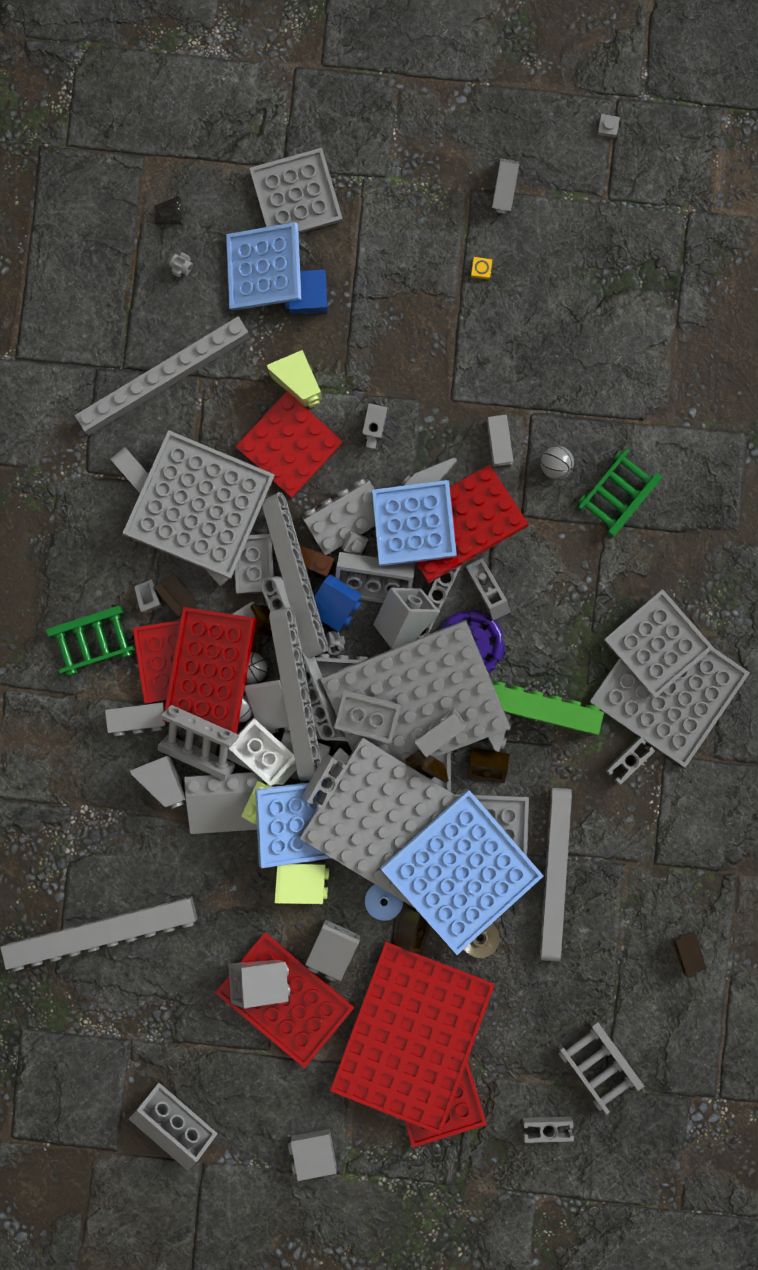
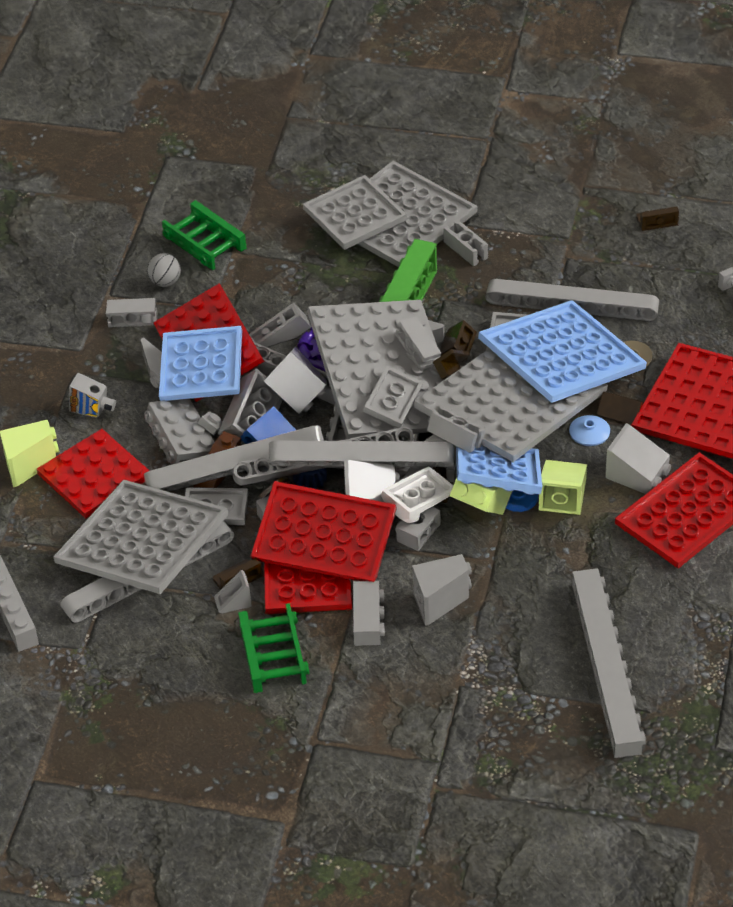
camera: 80 degrees left, 40 degrees down
(192, 755) = (421, 547): light grey fence -> none
(217, 803) = (474, 535): light grey slope -> none
(258, 983) = (668, 518): light grey slope -> none

